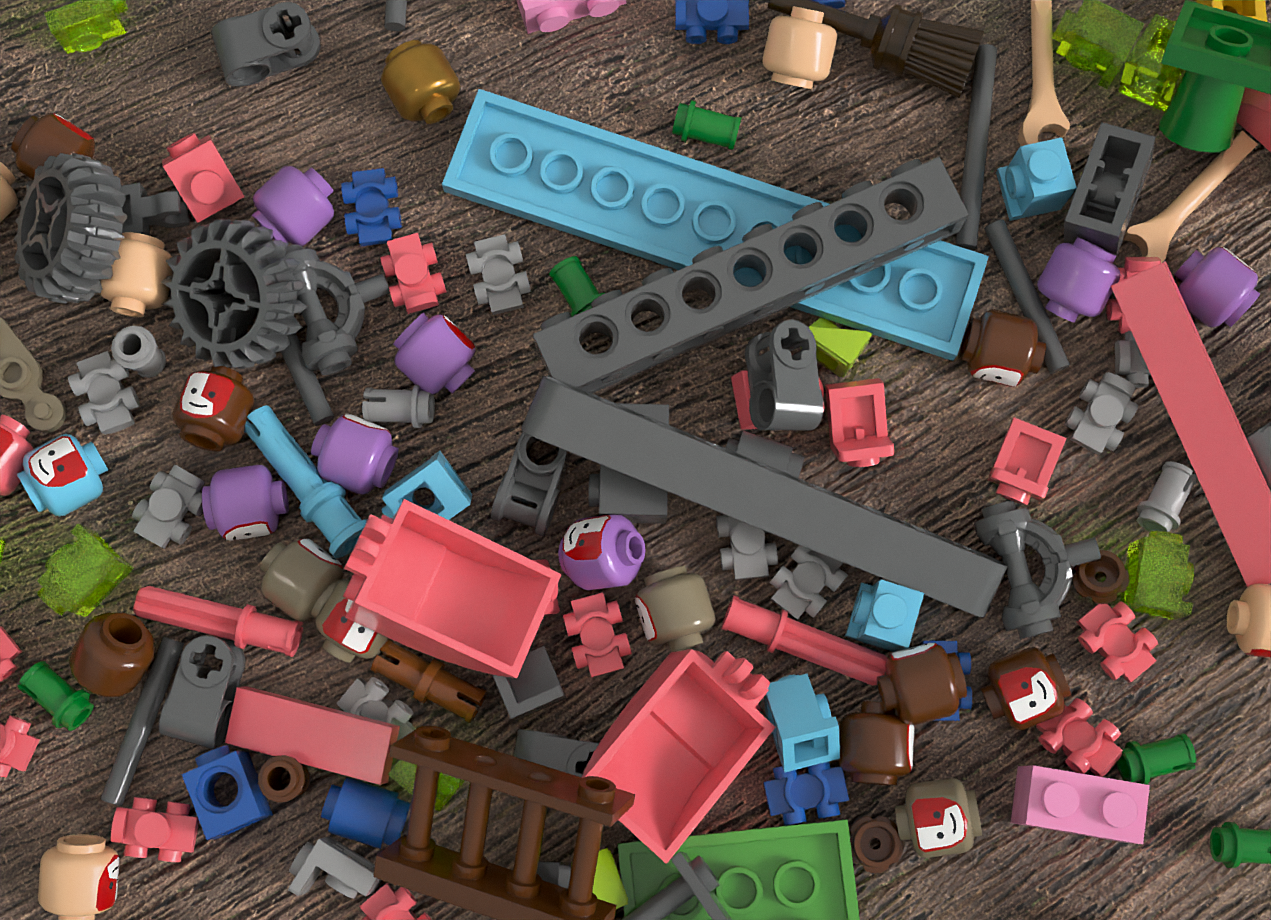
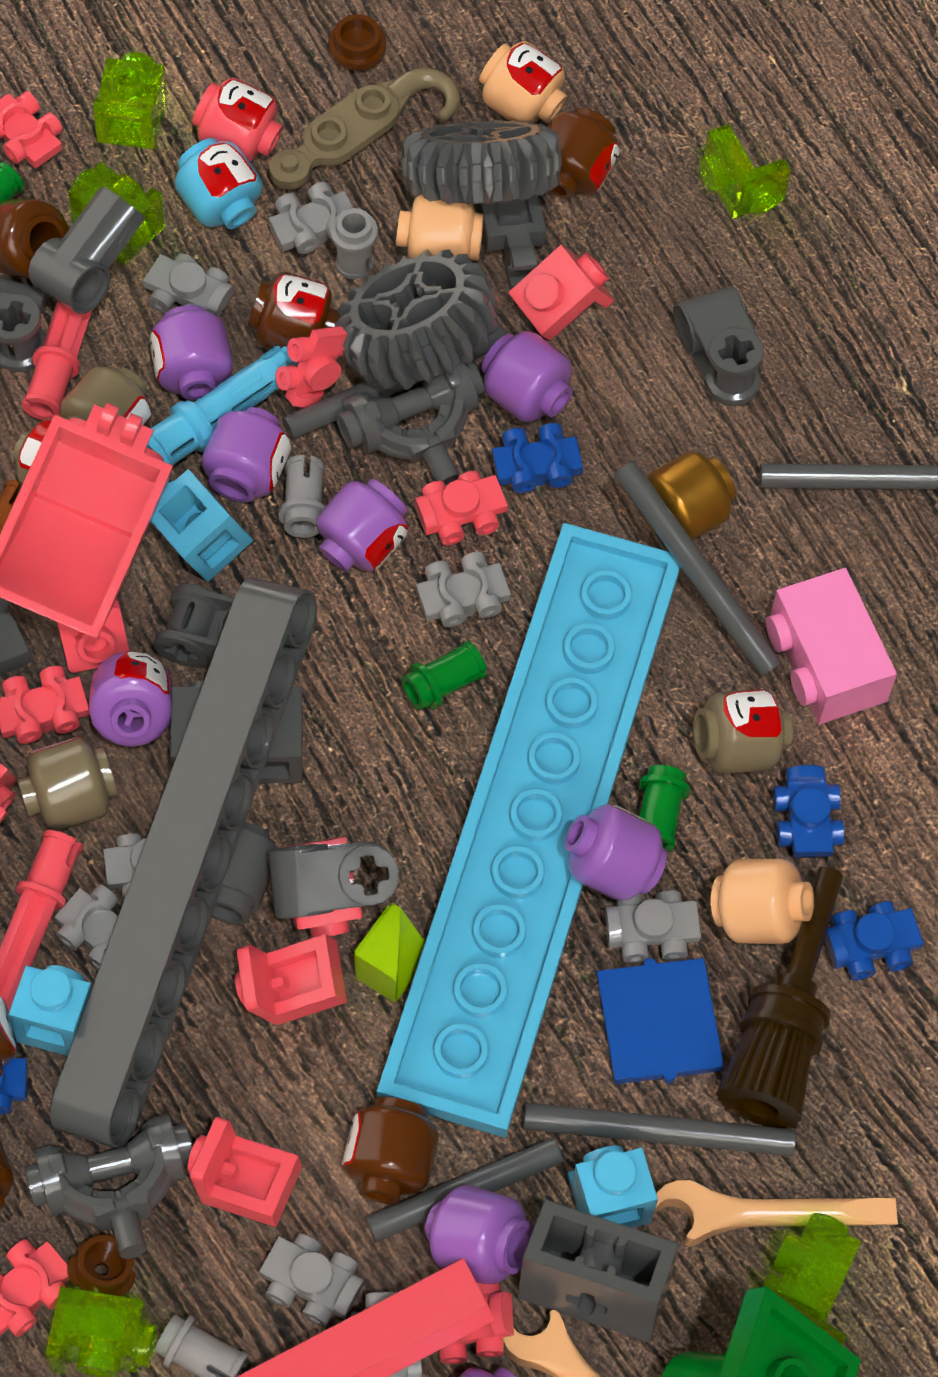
camera: 85 degrees right, 15 degrees down
(154, 600) = (78, 265): none -> dark grey piece
(272, 390) = (316, 365): none -> coral piece
(491, 77) = (697, 568): none -> dark grey bar
(644, 54) = (742, 731): none -> dark tan head
(760, 151) = (615, 852): none -> medium lavender head
(807, 131) = (655, 921): none -> light grey piece
(880, 137) = (659, 1021): none -> blue piece
(921, 188) = (546, 1044): dark grey brick -> none

